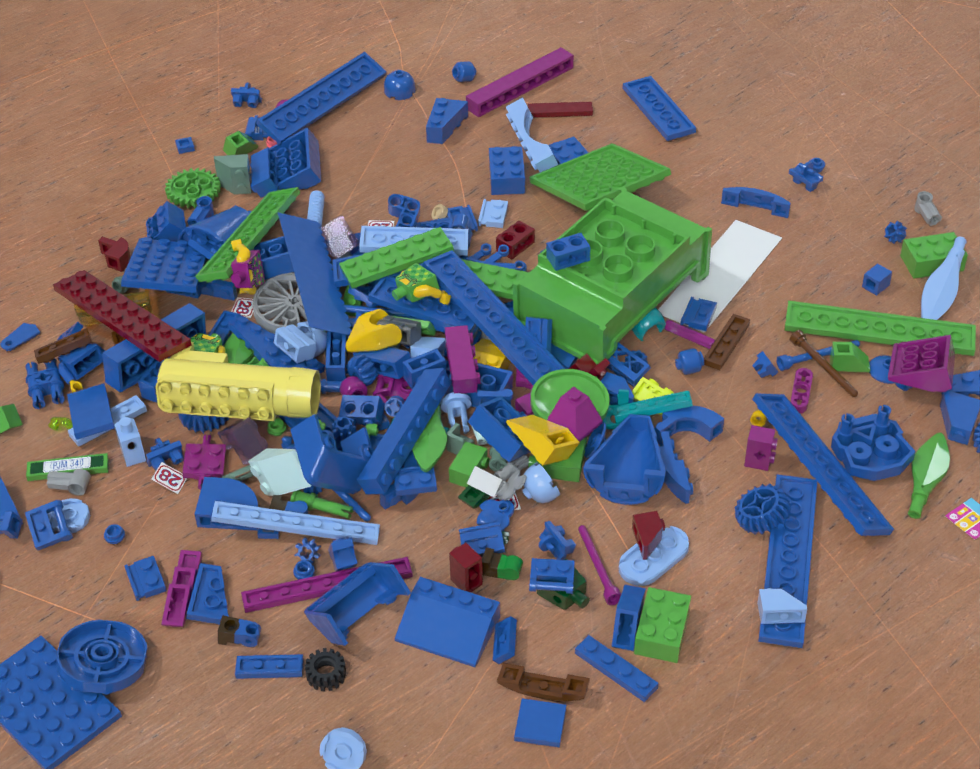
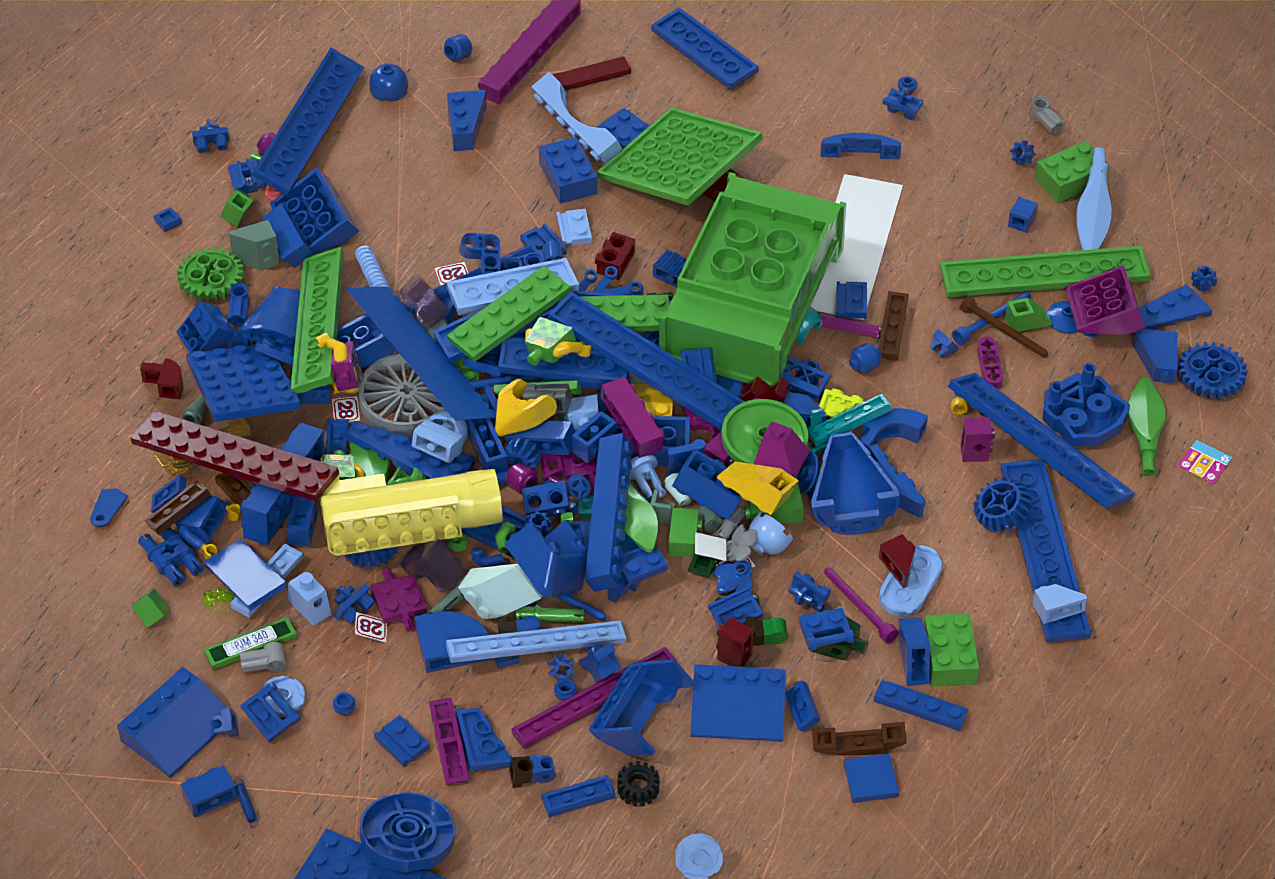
camera: 20 degrees left, 5 degrees up
(439, 212) = (514, 241): tan tile -> none
(568, 251) = (711, 269): blue brick -> none

